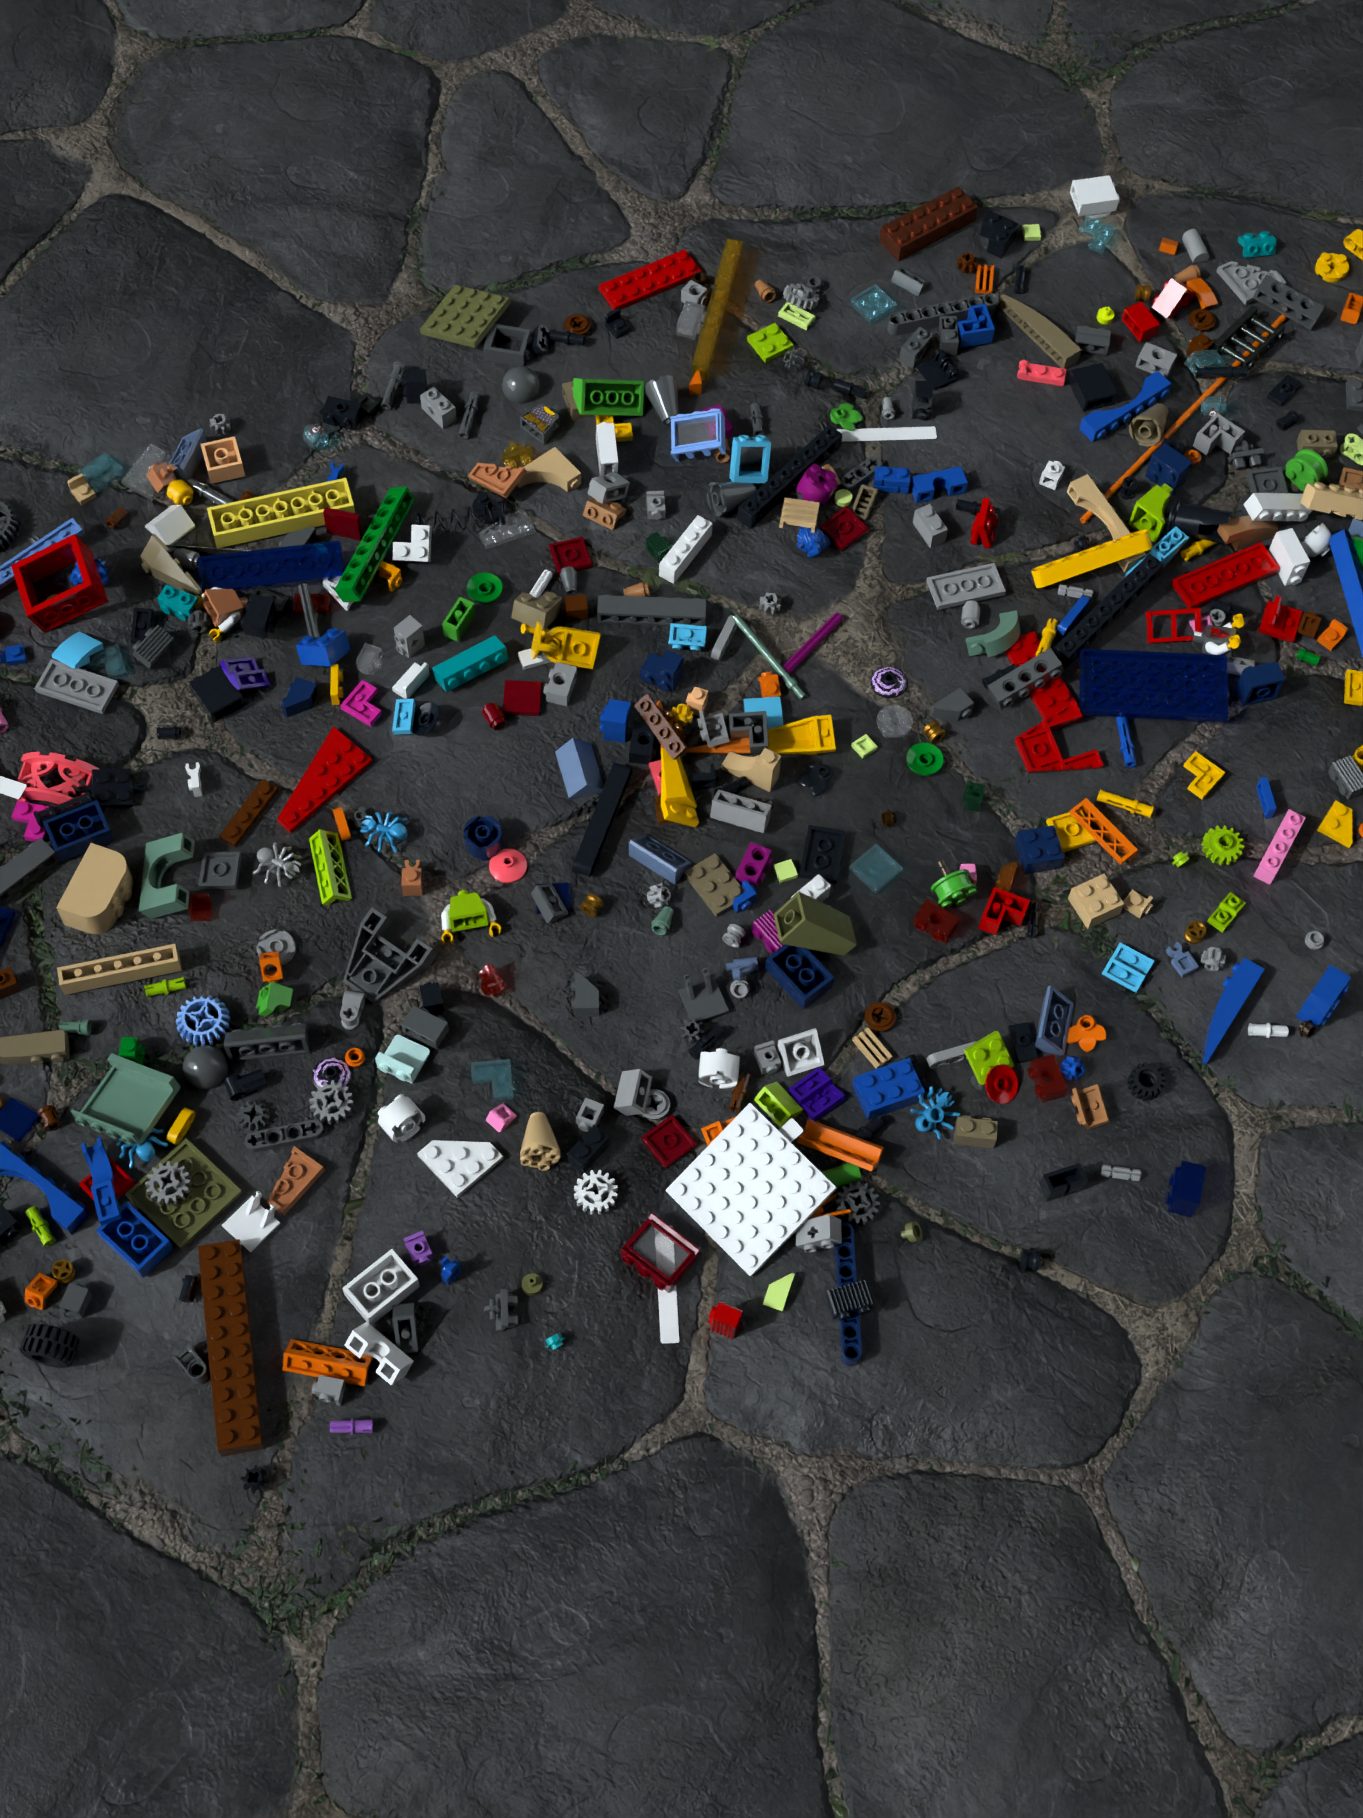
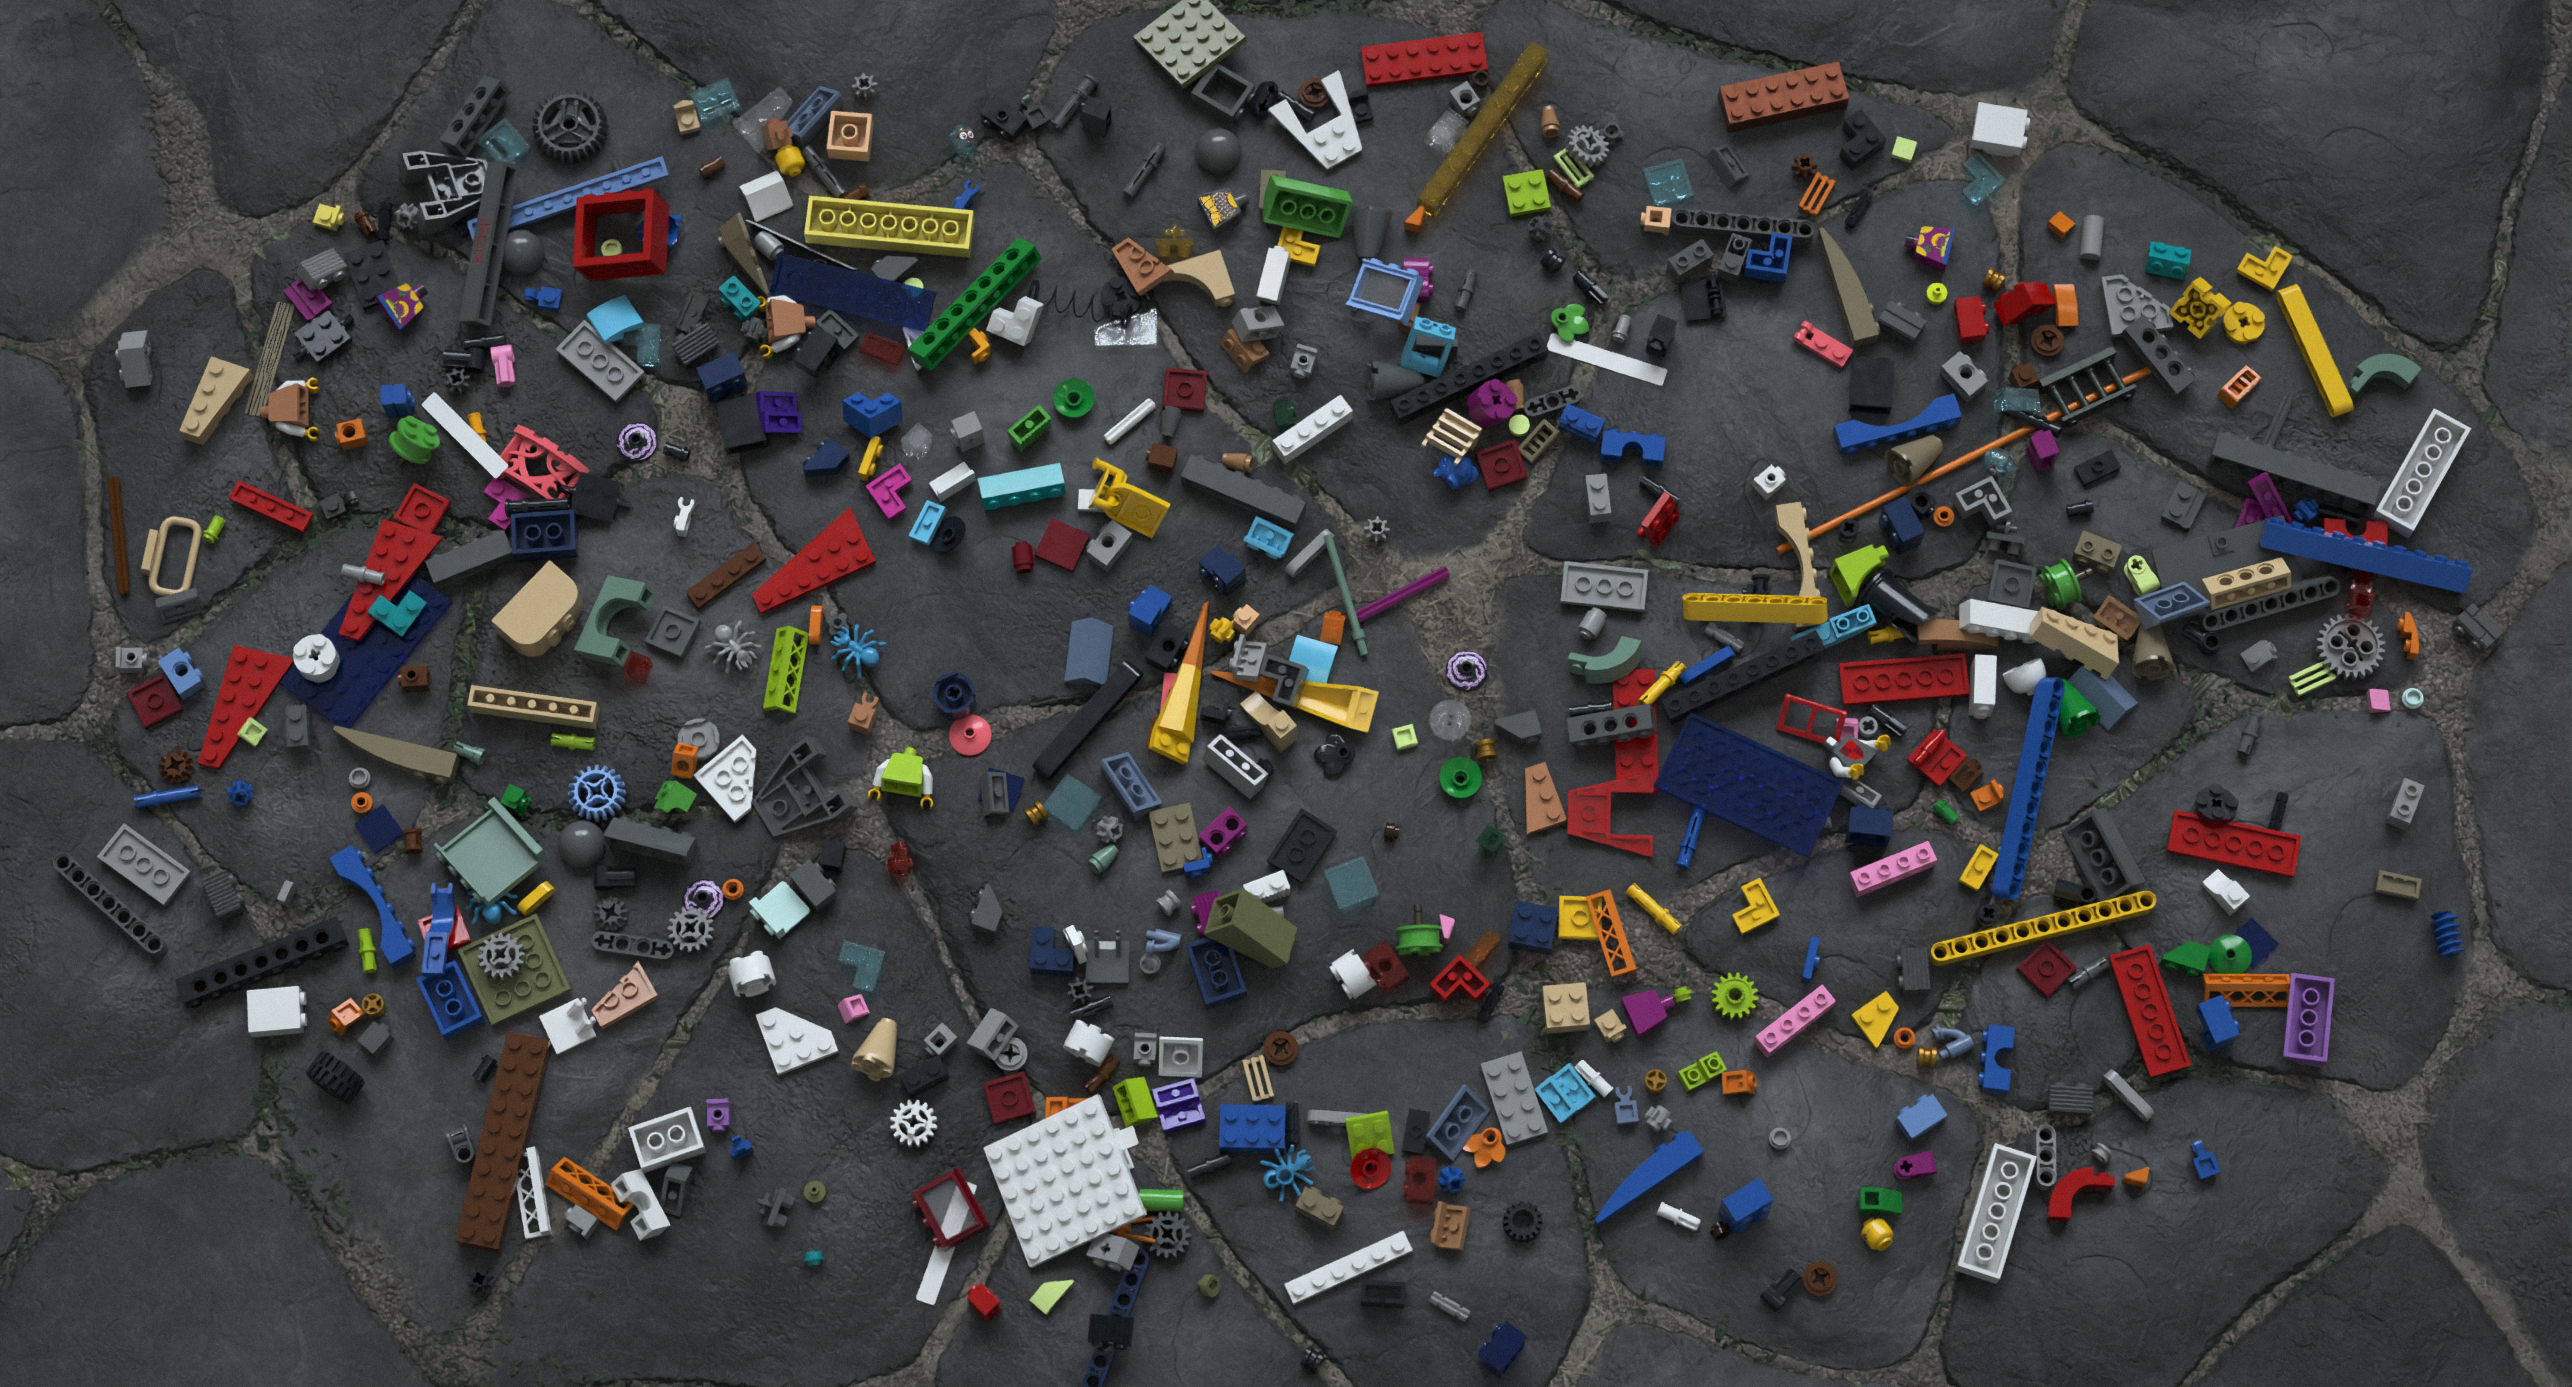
camera: 25 degrees right, 10 degrees up
(134, 743) = (638, 450): none -> dish
(186, 662) = (722, 377): none -> dark blue brick
(282, 1384) = (539, 1196): none -> white fence
(308, 610) = (873, 363): dark grey axle -> none
(317, 968) = (731, 778): none -> white plate
(342, 523) = (949, 265): dark red tile -> none
(351, 1009) = (750, 833): light grey piece -> none
(351, 1426) = (590, 1265): medium lavender axle -> none
(438, 407) = (1112, 150): light grey brick -> none
(531, 609) = (1117, 452): dark tan brick -> none
(605, 353) = (1333, 140): none -> white wing
(617, 887) = (1072, 802): none -> clear light blue plate
(653, 1015) = (1046, 959): none -> dark blue brick
(663, 726) = (1193, 638): reddish brown bracket -> none
(671, 990) = (1076, 943): none -> white wing
(785, 871) = (1255, 850): yellowish green tile -> none
(797, 328) = (1565, 185): none -> reddish brown pin
(841, 1145) = (1177, 1169): orange fence -> none
(877, 328) = (1659, 214): none -> light nougat brick
(913, 935) = (1353, 973): none -> white brick
(997, 756) = (1542, 800): none -> nougat wing
(1020, 1173) = (1348, 1267): none -> white plate
(1087, 285) = (1932, 246): none -> torso
(1088, 987) = (1514, 1098): none -> light grey plate
(1145, 947) = (1593, 1078): none -> white axle
(1159, 881) = (1646, 1011): none -> magenta torso
(1190, 273) = (2061, 274): medium nougat cone -> none
(1242, 387) = (2042, 450): none -> magenta brick
(1260, 908) = (1738, 1082): none -> orange bracket
(1292, 709) = (1892, 869): none -> bright pink brick
(1300, 261) = (2200, 307): none -> yellow brick
(1329, 230) = (2265, 273): none -> yellow plate

